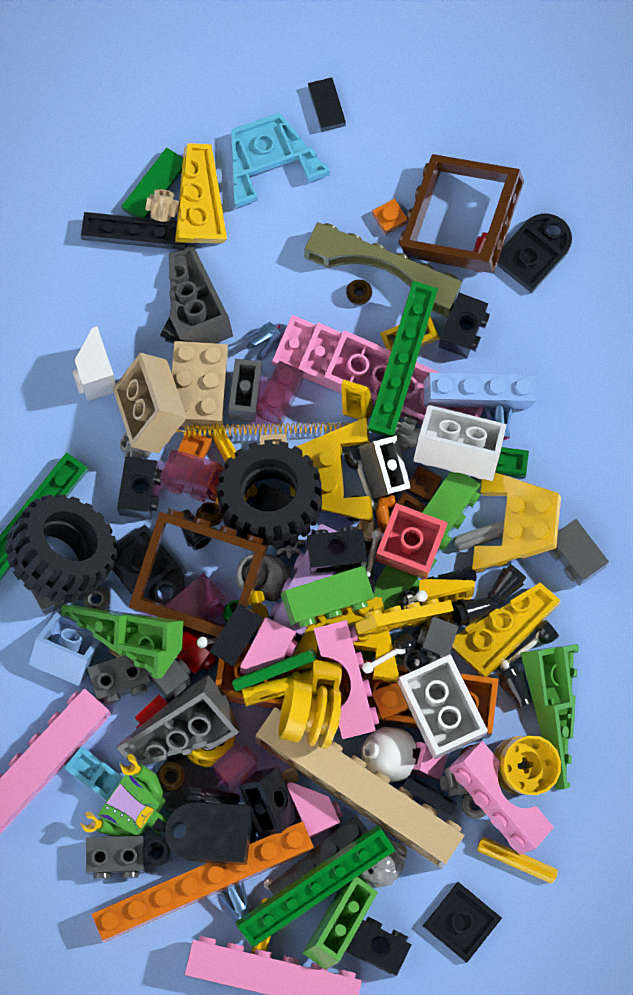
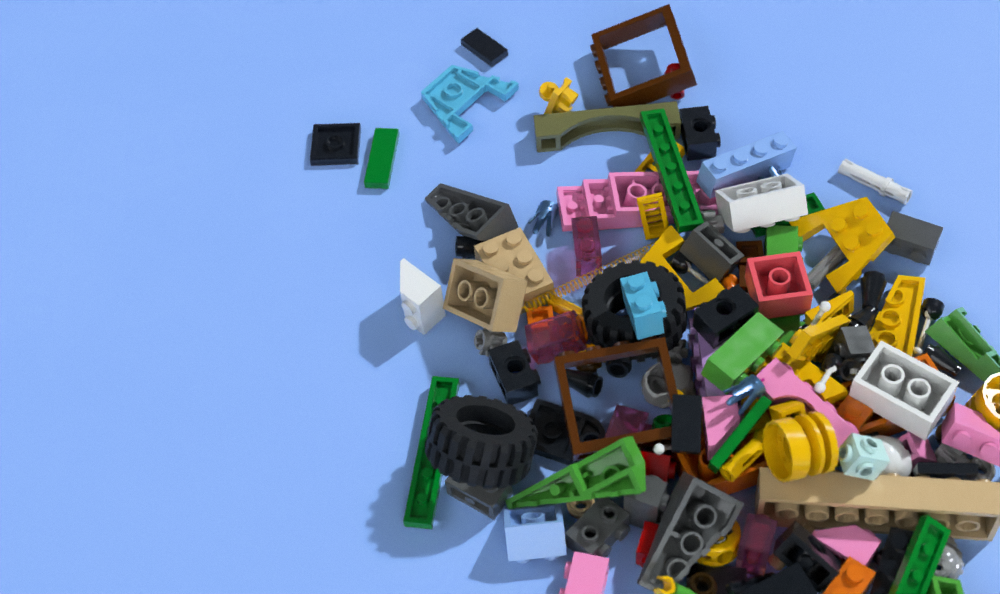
camera: 20 degrees left, 20 degrees down
(103, 604) = (534, 471): light grey plate -> none
(121, 143) = (335, 144): none -> black tile
(130, 231) = (386, 194): black plate -> none
(162, 205) = (399, 162): tan gear -> none
(200, 206) = (426, 147): yellow wing -> none
(245, 390) = (556, 255): dark grey brick -> none
(261, 507) = (642, 305): none -> medium azure brick
(305, 633) = (748, 386): none -> flat silver piece
(353, 214) = (559, 99): none -> yellow hips
(358, 751) = (863, 456): none -> light aqua brick
(362, 285) = (598, 151): dark brown plate -> none
(389, 216) = (587, 93): orange plate -> none
(534, 252) = (713, 66): black tile -> none
(597, 481) = (883, 185): none -> white pin

